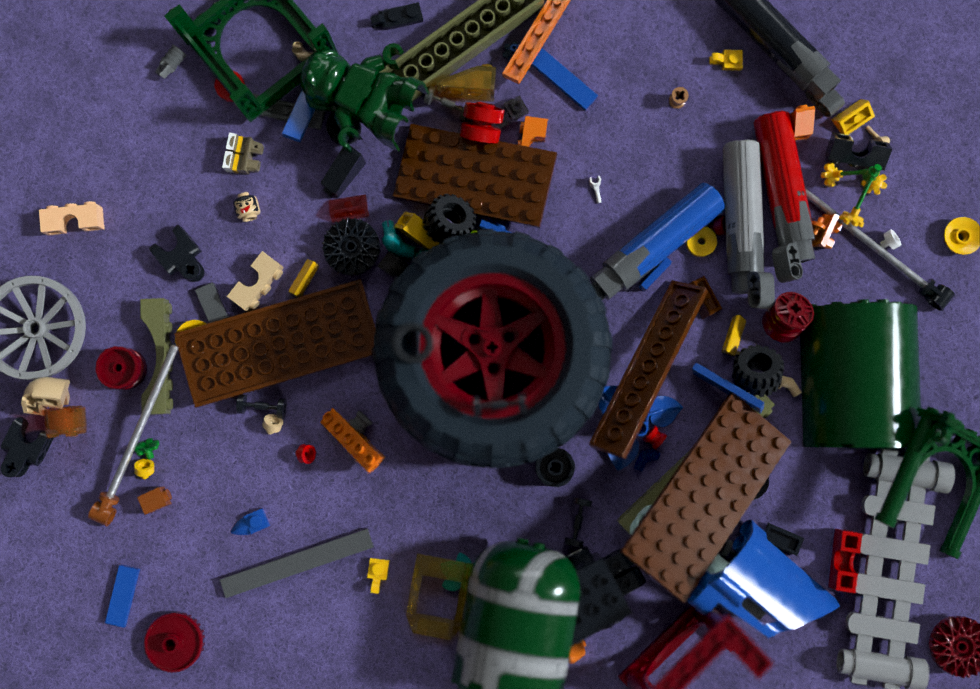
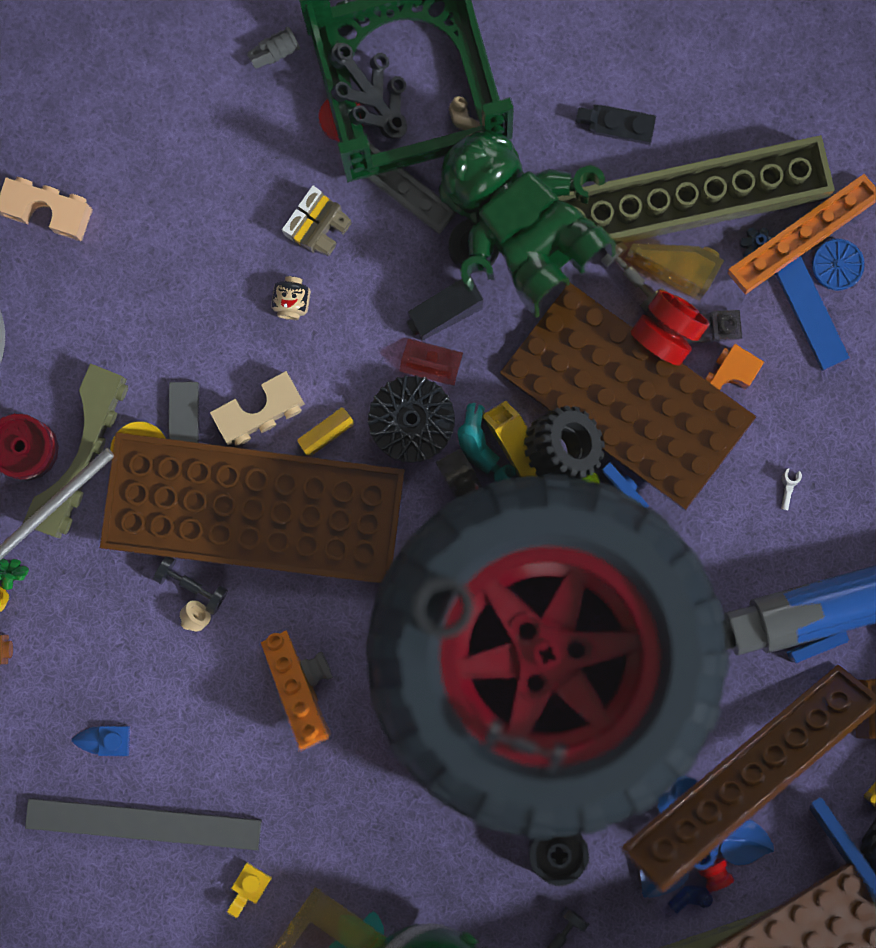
camera: 25 degrees right, 0 degrees up
(181, 257) = (172, 329): black piece -> none
(239, 63) = (371, 93): none -> black plant
(298, 119) = (416, 208): blue tile -> none
(306, 453) = (222, 678): red tile -> none
(566, 43) = (838, 264): none -> blue wheel

